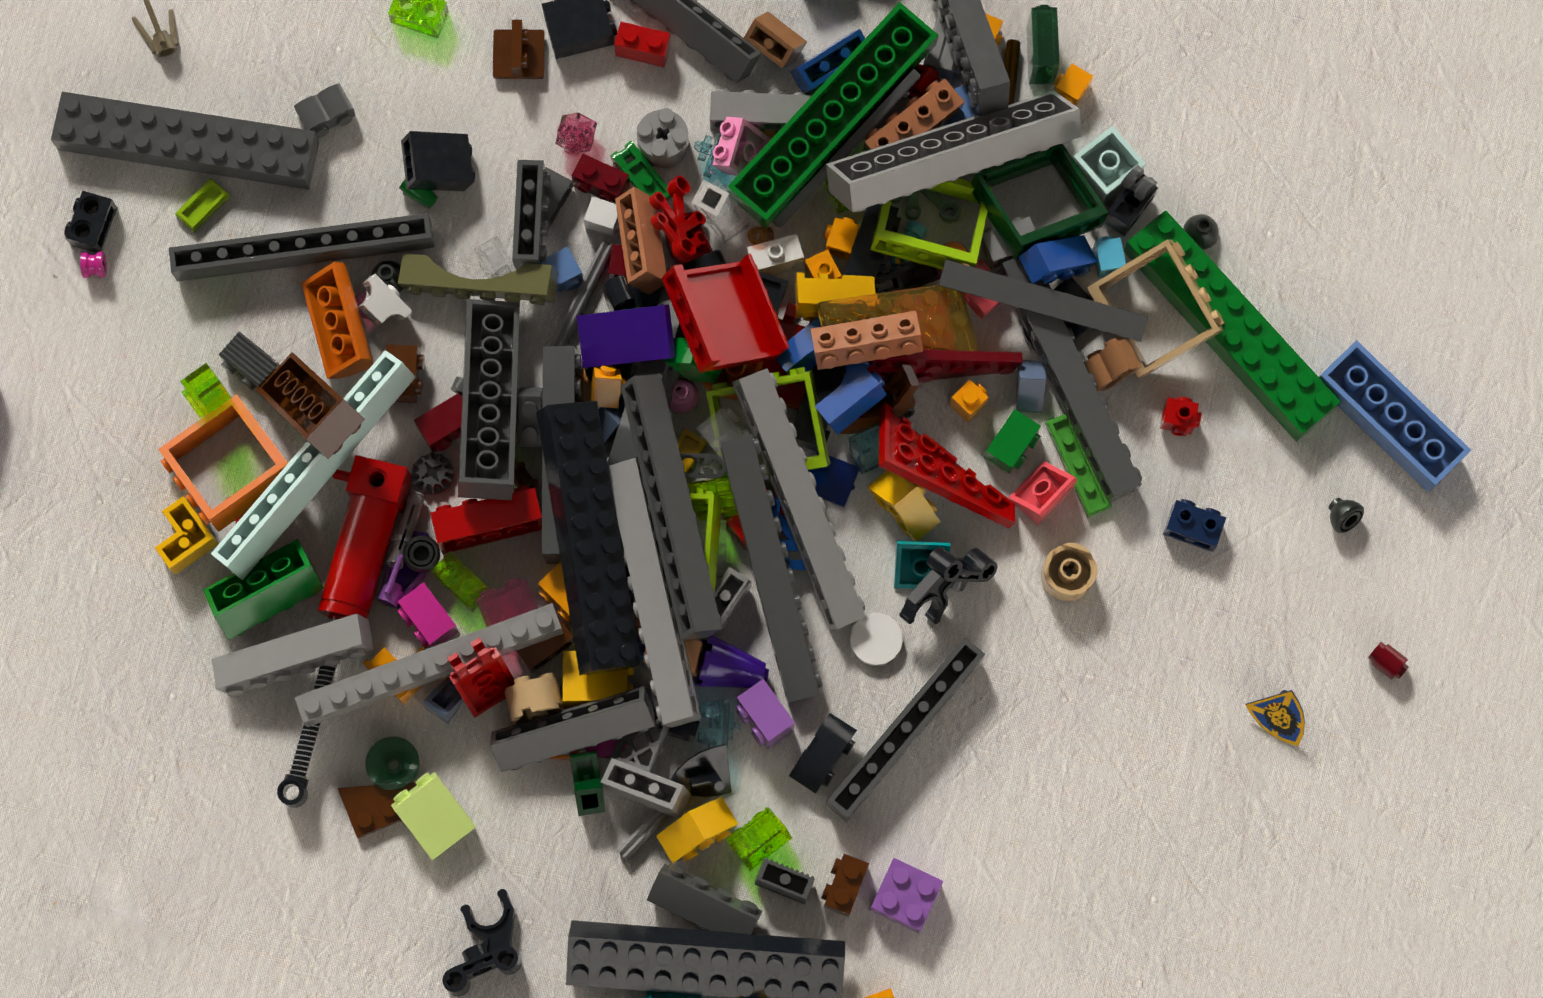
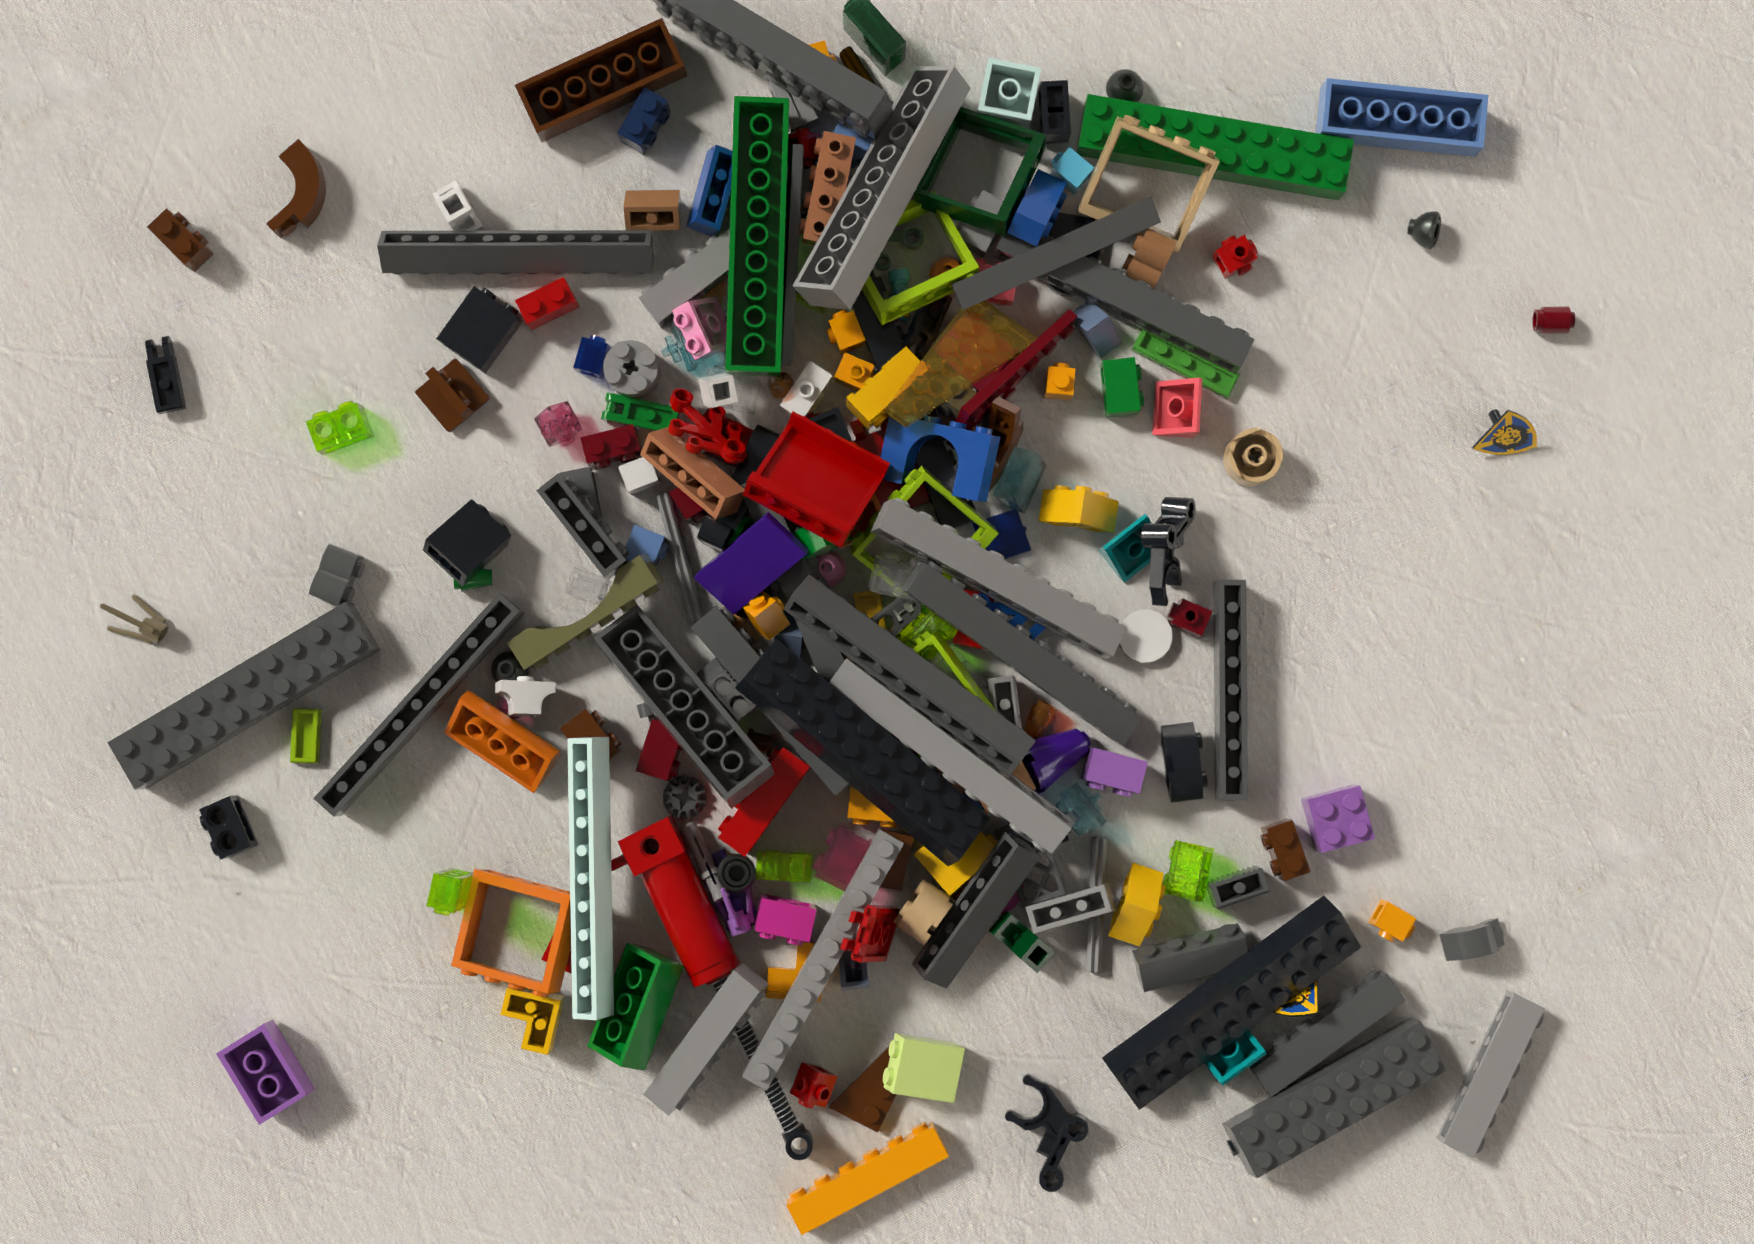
camera: 40 degrees left, 10 degrees up
(93, 264) = (262, 860): dark pink wheel -> none
(248, 361) = (460, 832): dark grey brick -> none
(310, 405) = (549, 835): reddish brown brick -> none
(320, 864) = (867, 1177): none -> light orange brick
(340, 760) = (813, 1085): none -> red brick
(385, 752) = (845, 1063): clear green dish -> none
(640, 104) = (591, 356): none -> clear blue brick
(705, 773) = (1105, 856): black shield -> none
(743, 633) = (1039, 718): none -> clear orange cone
(871, 340) = (951, 407): nougat brick -> none
(920, 651) = (1189, 617): none -> dark red brick
(935, 469) = (1081, 465): red wing -> none
(1073, 84) = (923, 47): light orange brick -> none
(1138, 183) = (1058, 90): dark grey wheel -> none
(1194, 525) = (1317, 336): dark blue brick -> none

